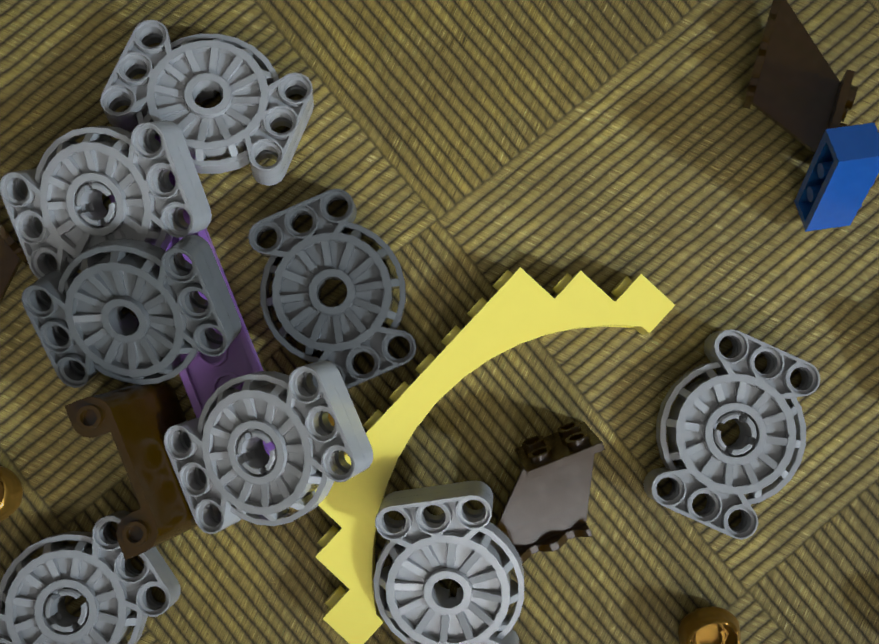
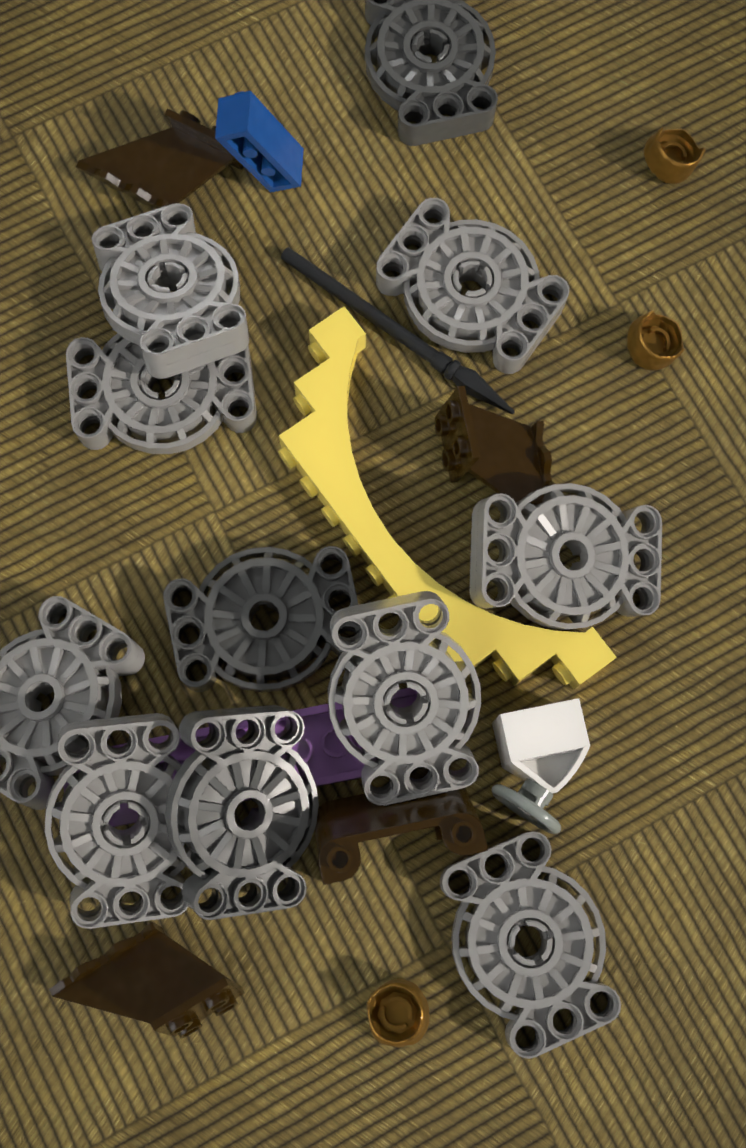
camera: 80 degrees left, 10 degrees down
(250, 596) = (545, 751): none -> white piece
(563, 100) = (130, 408): none -> light grey piece
(627, 443) = (452, 370): none -> black piece
(687, 94) = (163, 253): none -> light grey piece

